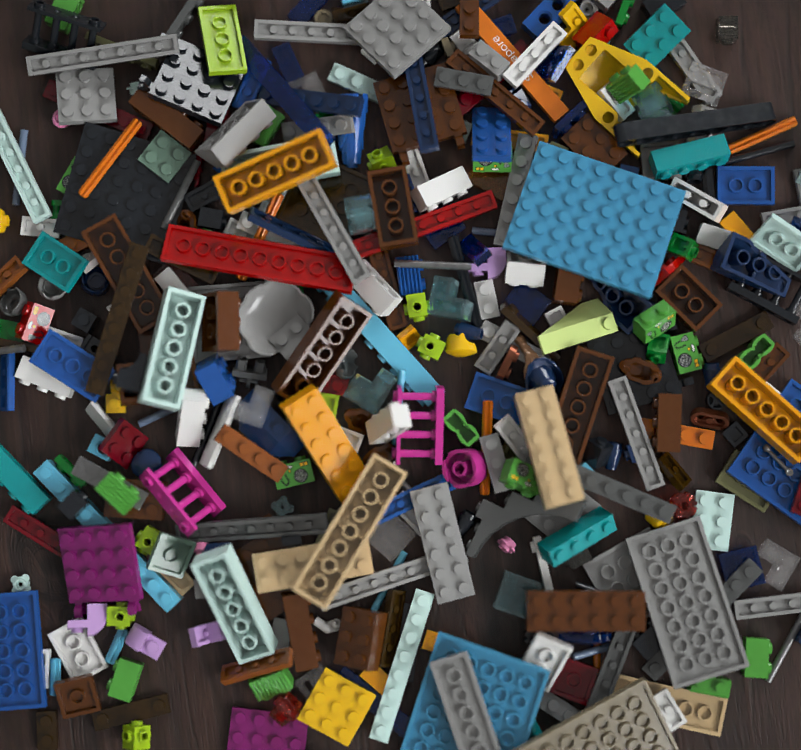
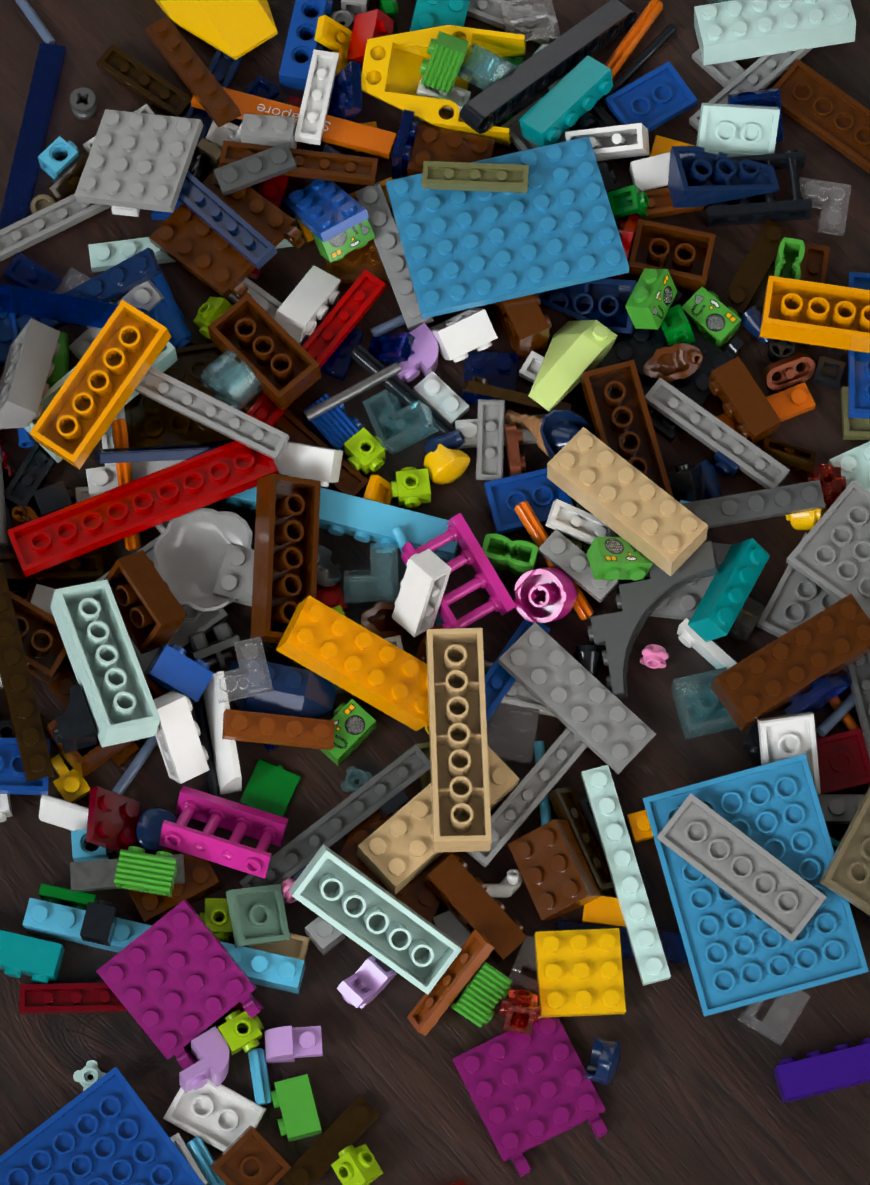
camera: 35 degrees left, 15 degrees down
(229, 478) = (270, 788): none -> green piece
(595, 176) = (475, 176): none -> olive plate

